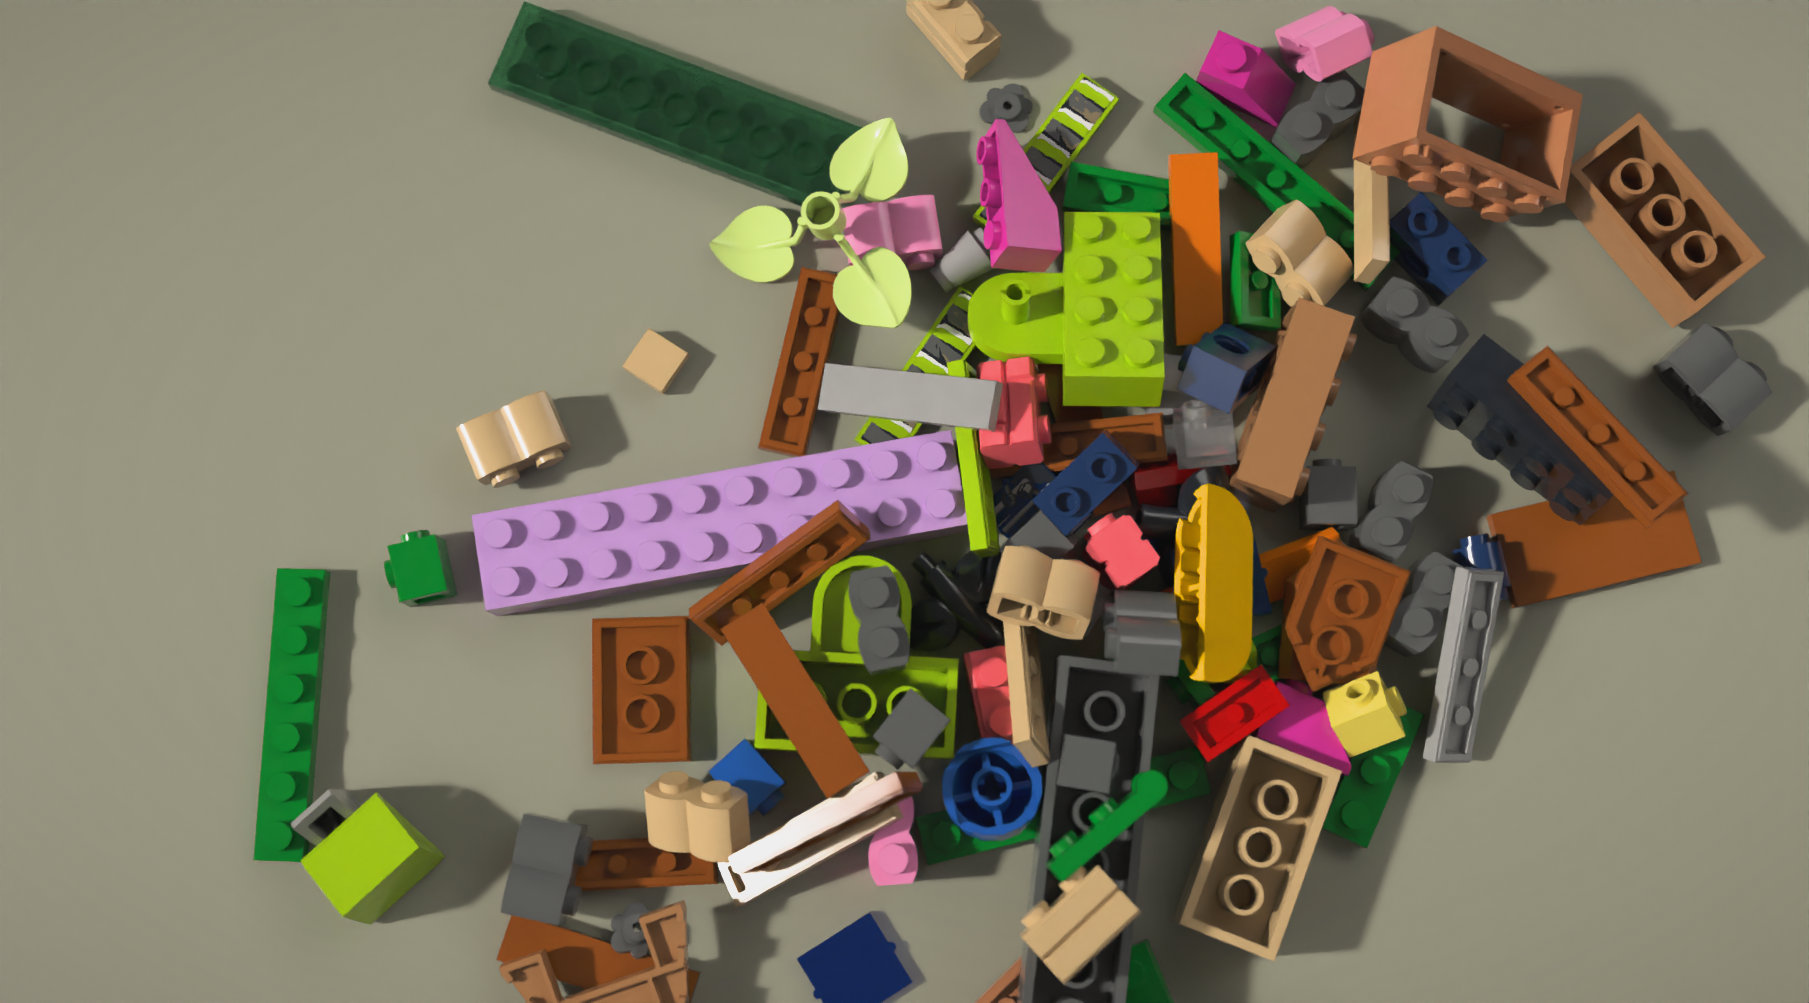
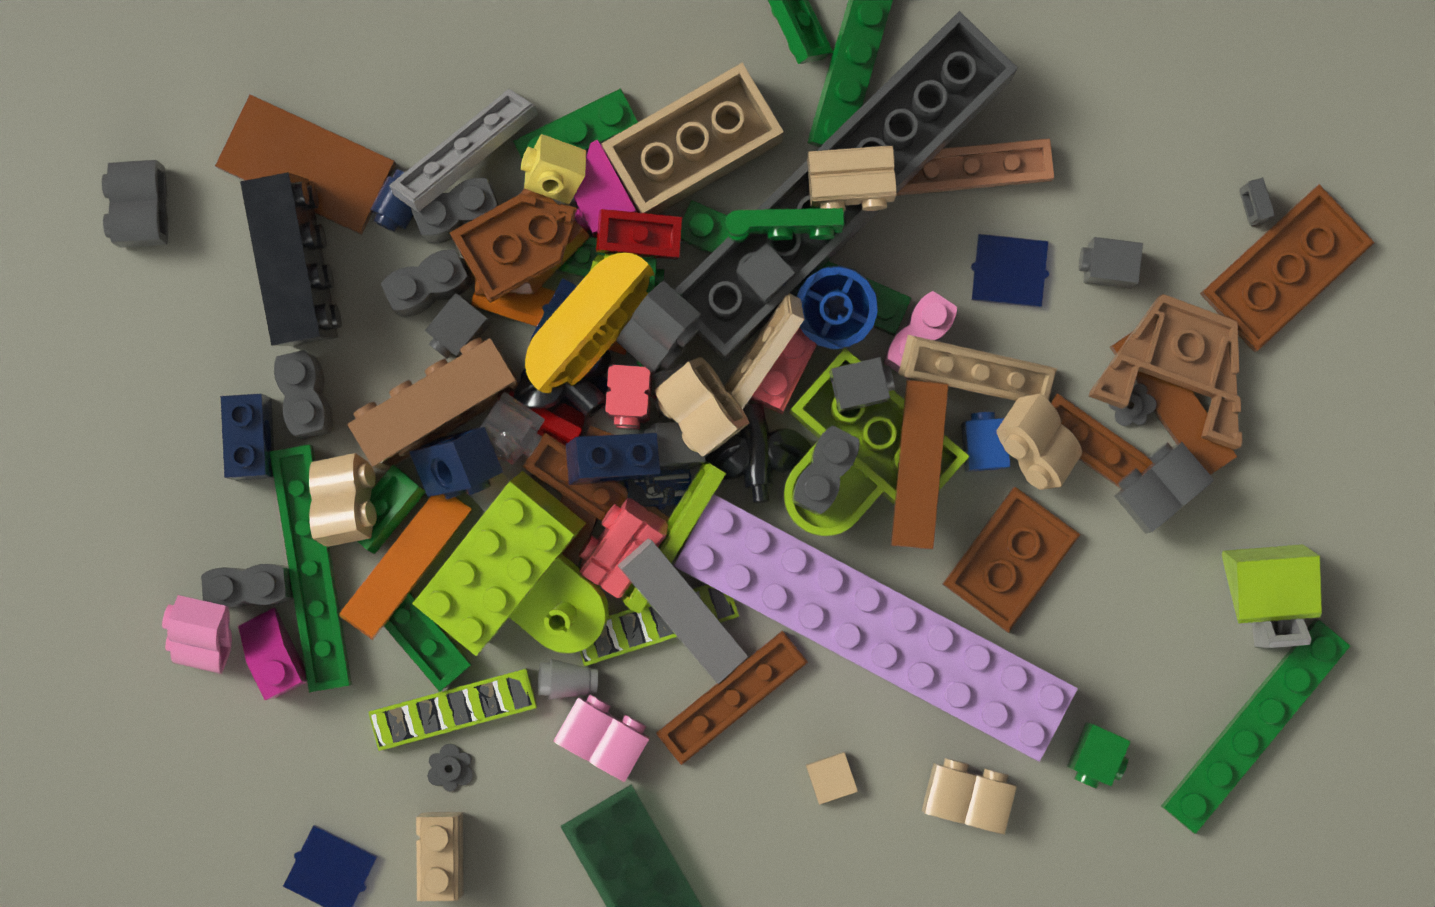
camera: 140 degrees left, 5 degrees up
(782, 569) = (861, 560): dark orange tile -> none
(826, 822) = (961, 368): tile -> none
(873, 289) = (646, 706): yellowish green plant -> none
(1020, 212) = (504, 683): dark pink slope -> none
(1370, 220) = (254, 507): tan tile -> none
(1532, 109) = (118, 449): nougat hose -> none
(1597, 437) = (260, 217): dark orange tile -> none
(1658, 221) = (81, 334): medium nougat brick -> none

